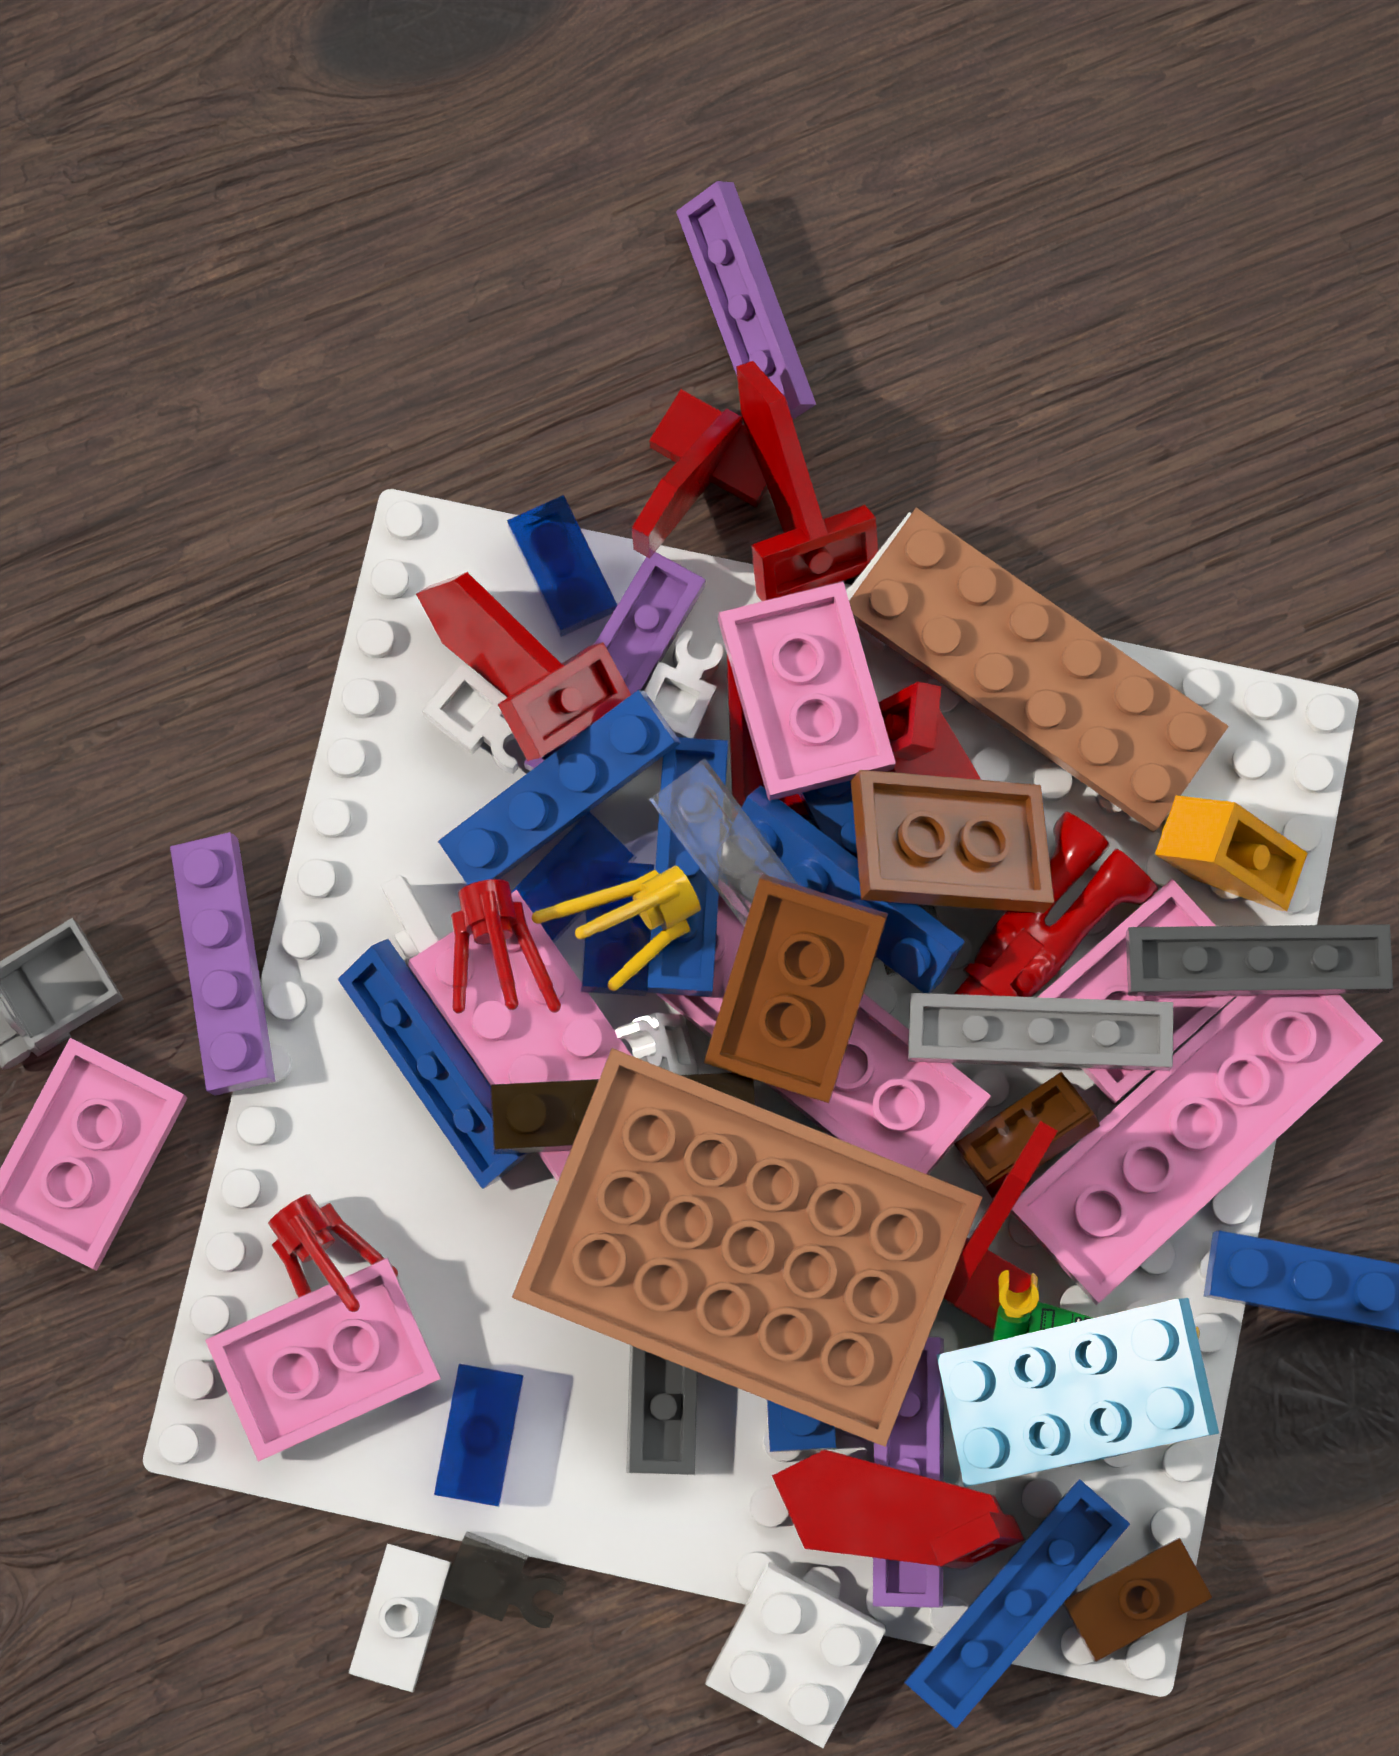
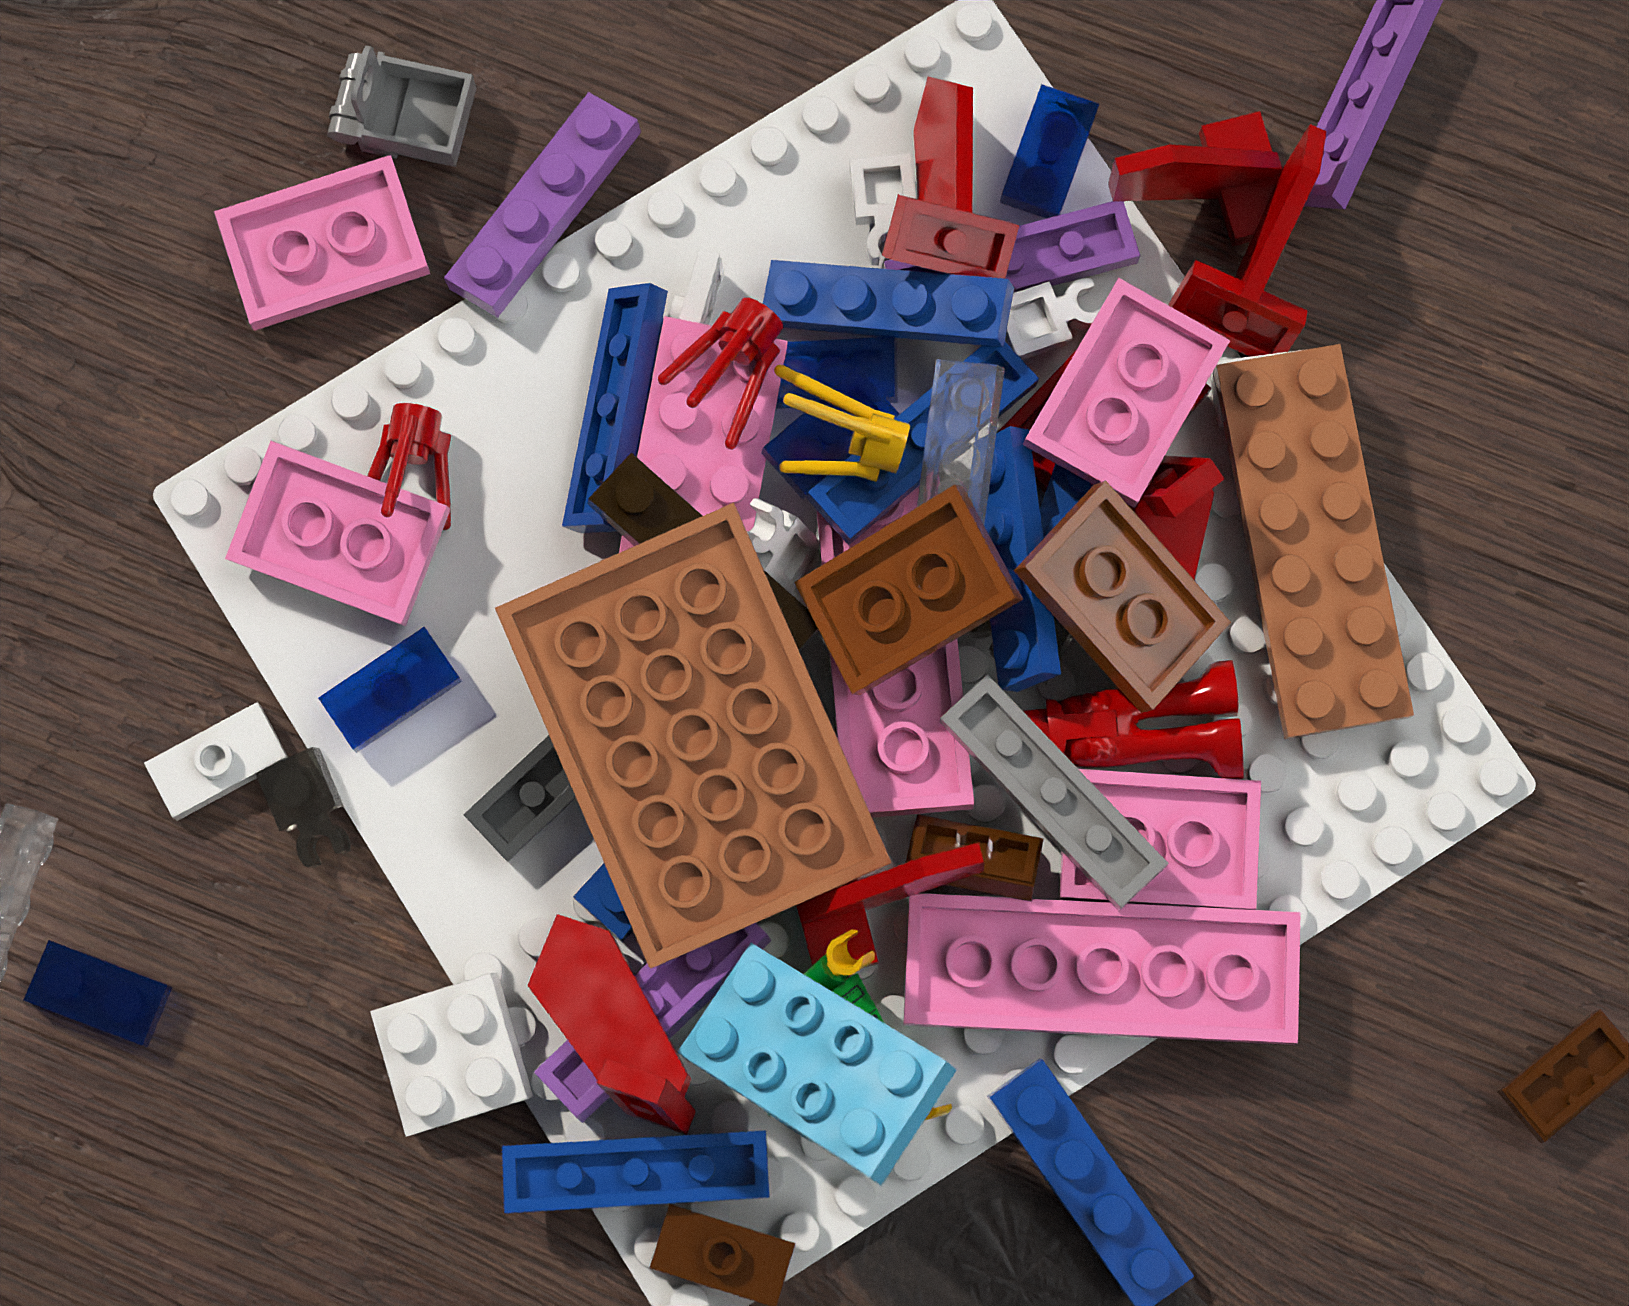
camera: 45 degrees right, 0 degrees up
(1231, 851) = (1324, 804): light orange slope -> none
(1259, 960) = (1263, 896): dark grey plate -> none

